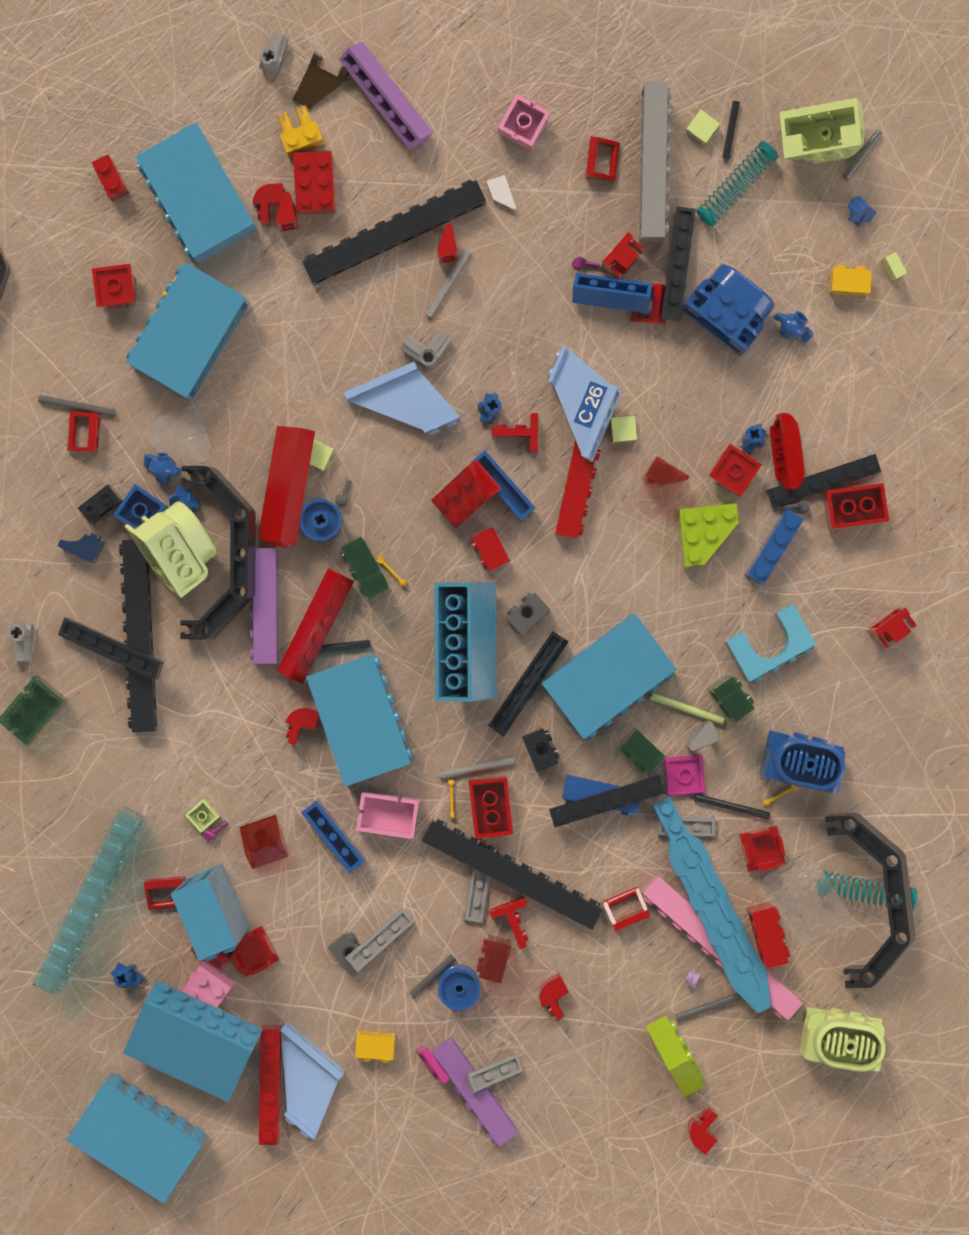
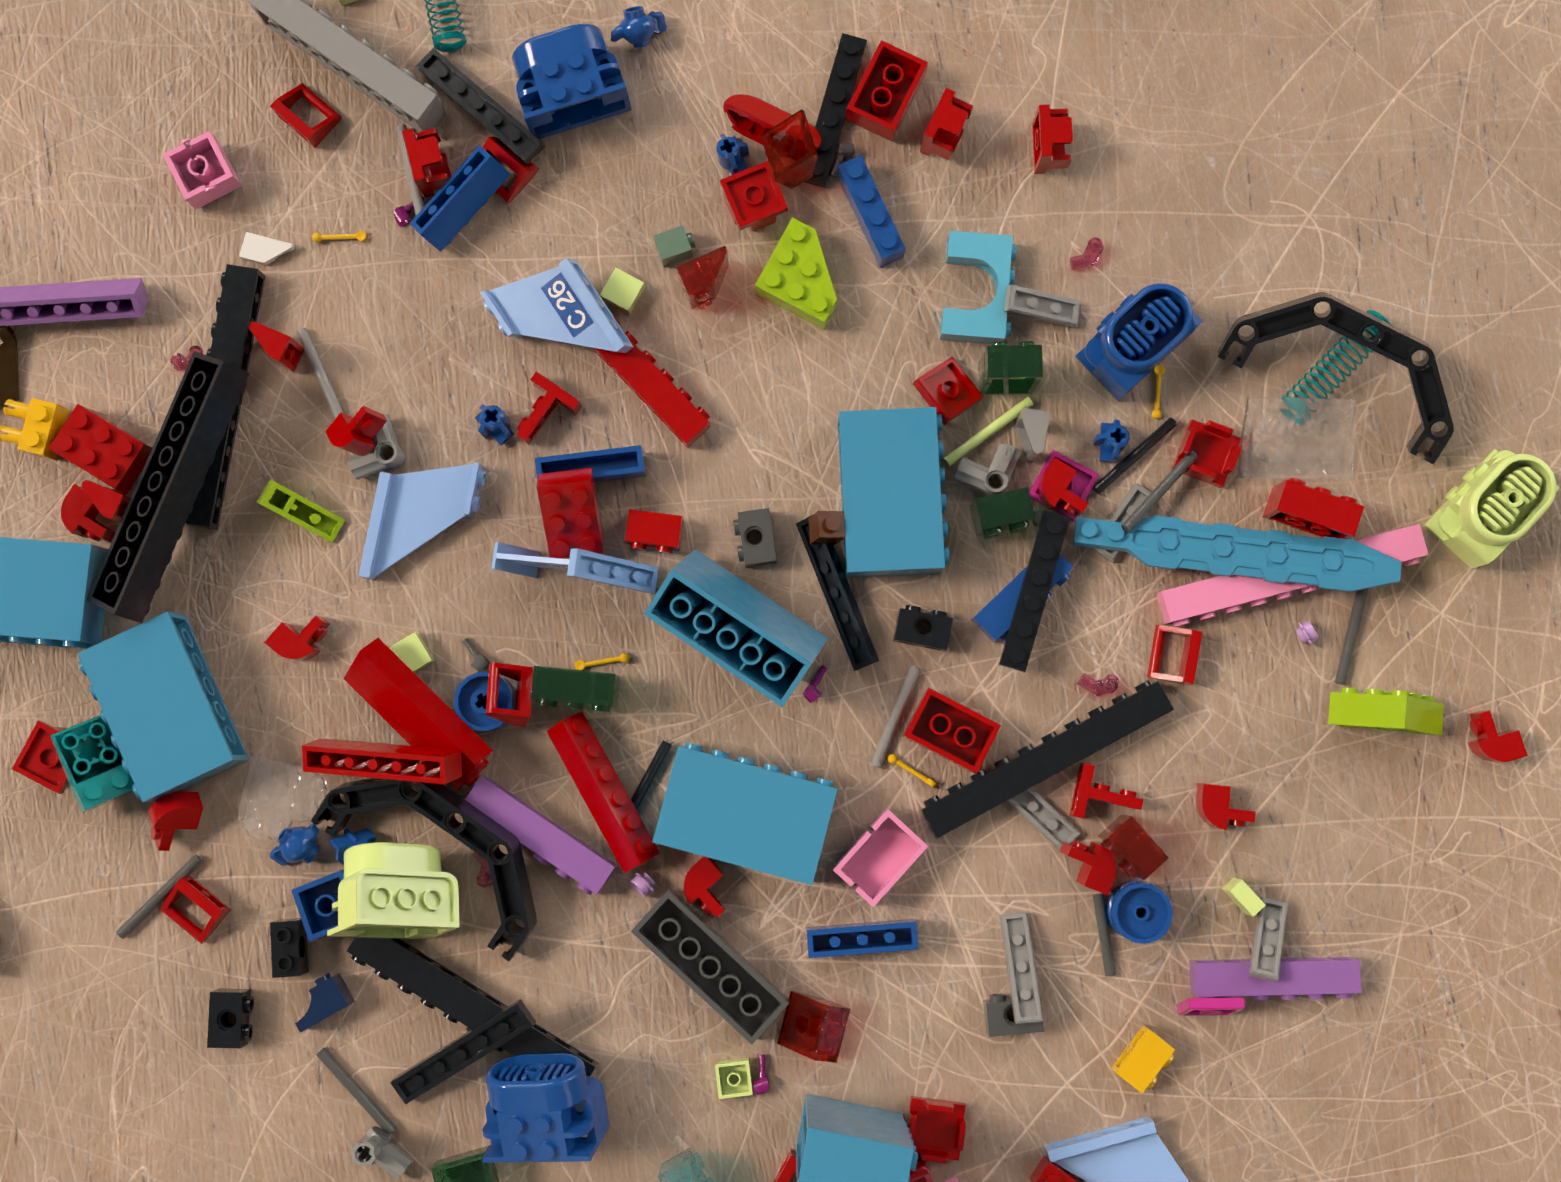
camera: 50 degrees left, 5 degrees down
(25, 501) = (221, 1032): none -> black brick
(45, 600) = (356, 1091): none -> dark grey bar
(111, 718) = (543, 1109): none -> blue brick
(127, 315) = (92, 763): none -> teal slope
(131, 381) = (174, 812): none -> red brick
(219, 590) = (484, 878): none -> clear pink arm
(245, 485) = (382, 761): none -> red brick
(257, 758) = (711, 966): none -> dark grey brick
(276, 382) = (295, 645): none -> red brick
(278, 686) = (643, 884): none -> lavender plate
(318, 245) = (168, 487): none -> black brick
(340, 540) = (524, 678): none -> red tile
(358, 328) = (300, 510): none -> lime slope
(402, 197) = (181, 363): none -> clear pink arm
(427, 331) = (356, 432): none -> red brick
(438, 524) = (580, 565): none -> light blue piece
(457, 708) = (811, 693): none -> magenta hand
(468, 946) = (1097, 868): none -> red brick
(509, 1042) = (1243, 896): none -> yellowish green piece
(549, 245) = (360, 235): none -> yellow hinge
(560, 652) = (826, 527): none -> reddish brown brick
(576, 877) = (1100, 687): none -> clear pink arm
(597, 263) = (415, 191): none -> light grey bar
(669, 731) = (1001, 468): none -> light grey piece
(672, 442) = (674, 245): none -> sand green brick
(679, 770) = (1053, 488): none -> red brick
(695, 668) = (948, 390): none -> red tile
(718, 835) = (1159, 491): none -> dark grey bar
(731, 786) = (1112, 441): none -> blue piece
(777, 474) = (790, 150): none -> clear red slope
(785, 690) = (1042, 306): none -> light grey tile
(837, 698) = (1090, 256): none -> clear pink arm
(857, 558) = (946, 126): none -> red panel

